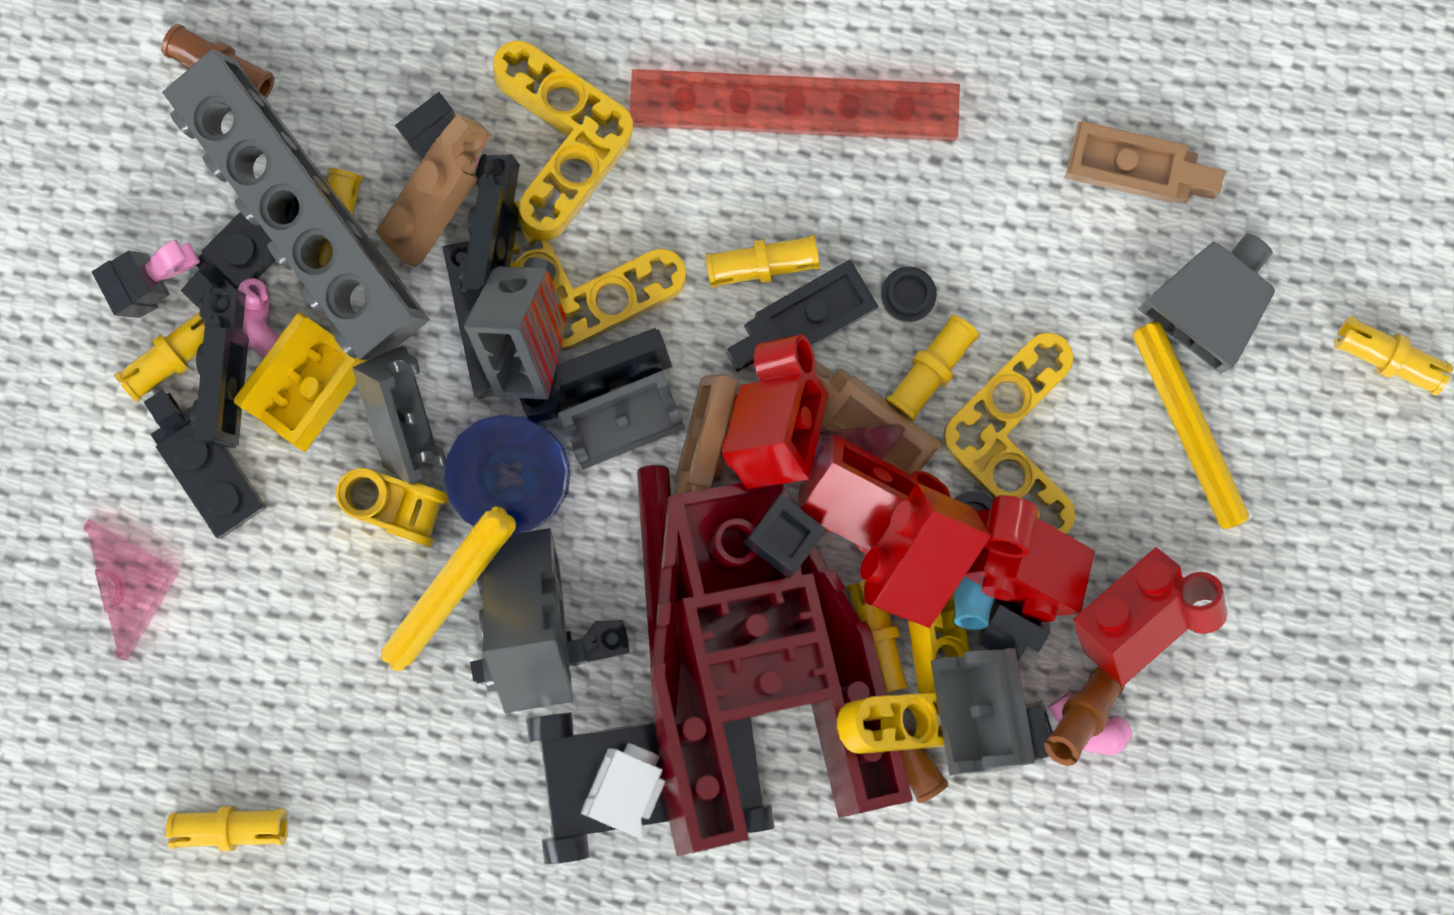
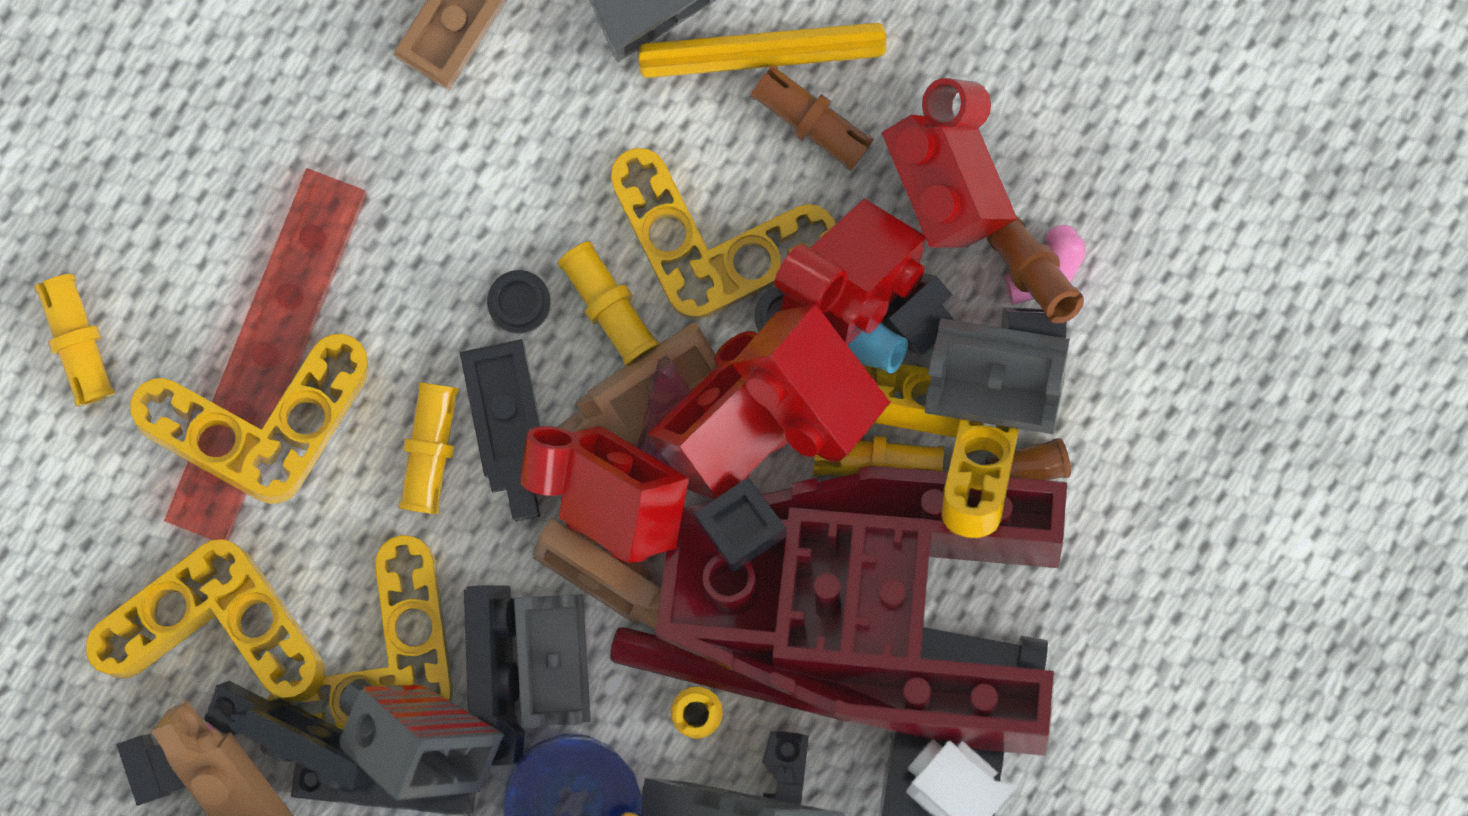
camera: 75 degrees left, 0 degrees up
(611, 539) = (692, 729): none -> yellow pin
(717, 116) = (252, 443): none -> yellow beam
(1148, 485) = (811, 117): none -> dark orange pin

